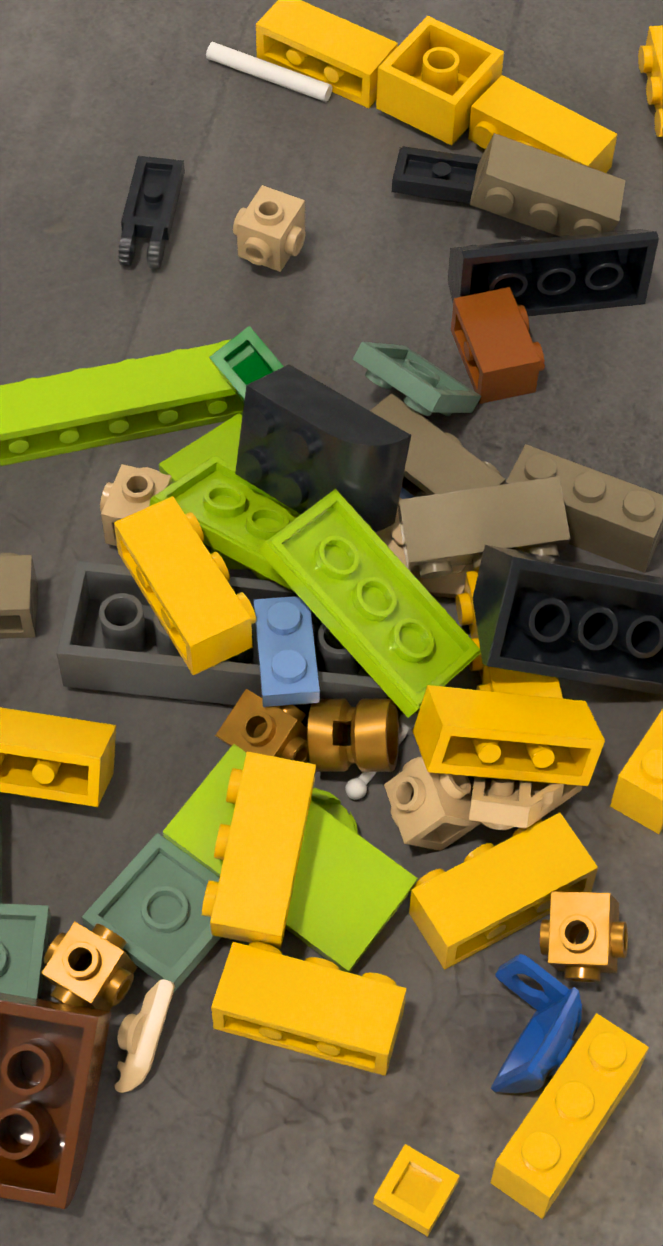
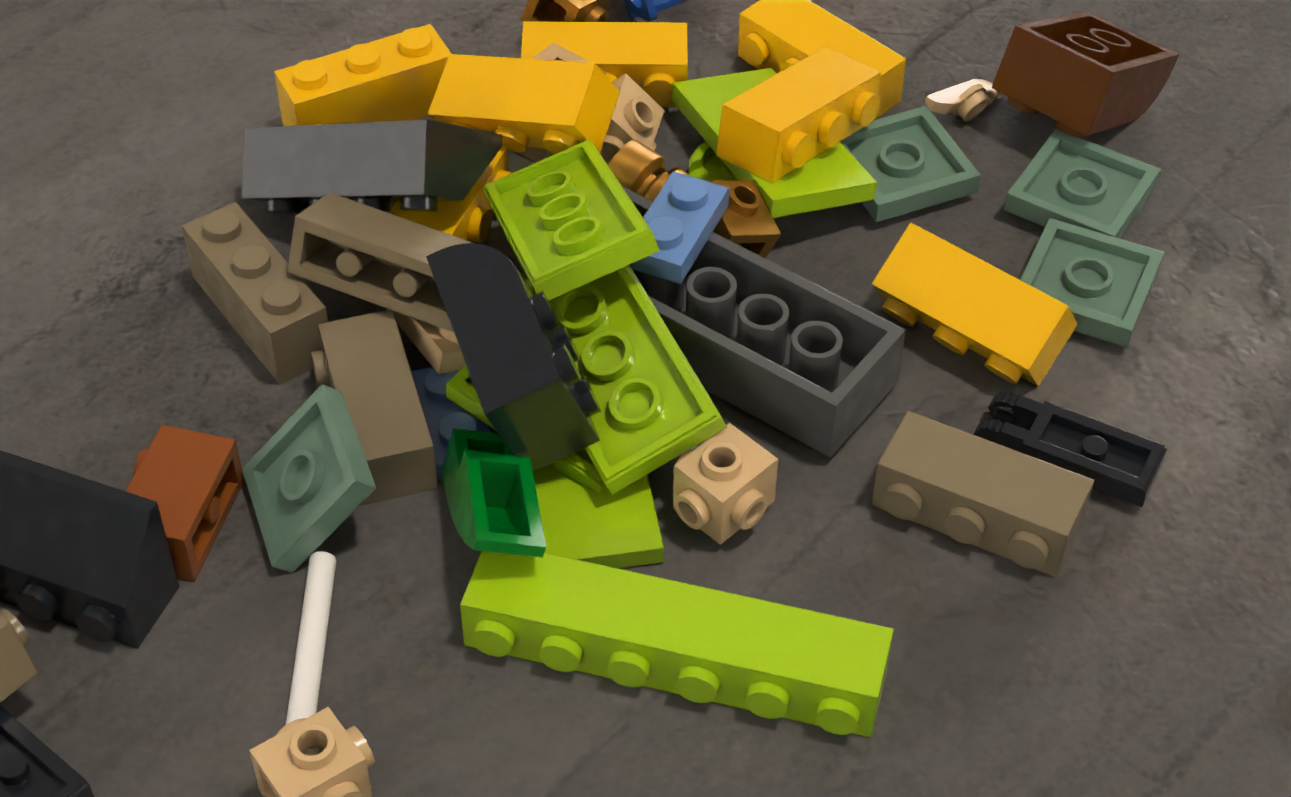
camera: 150 degrees left, 10 degrees down
(103, 981) = (995, 131): brick -> none
(185, 584) = (742, 303): yellow brick -> none
(334, 305) = (312, 637): none -> white bar

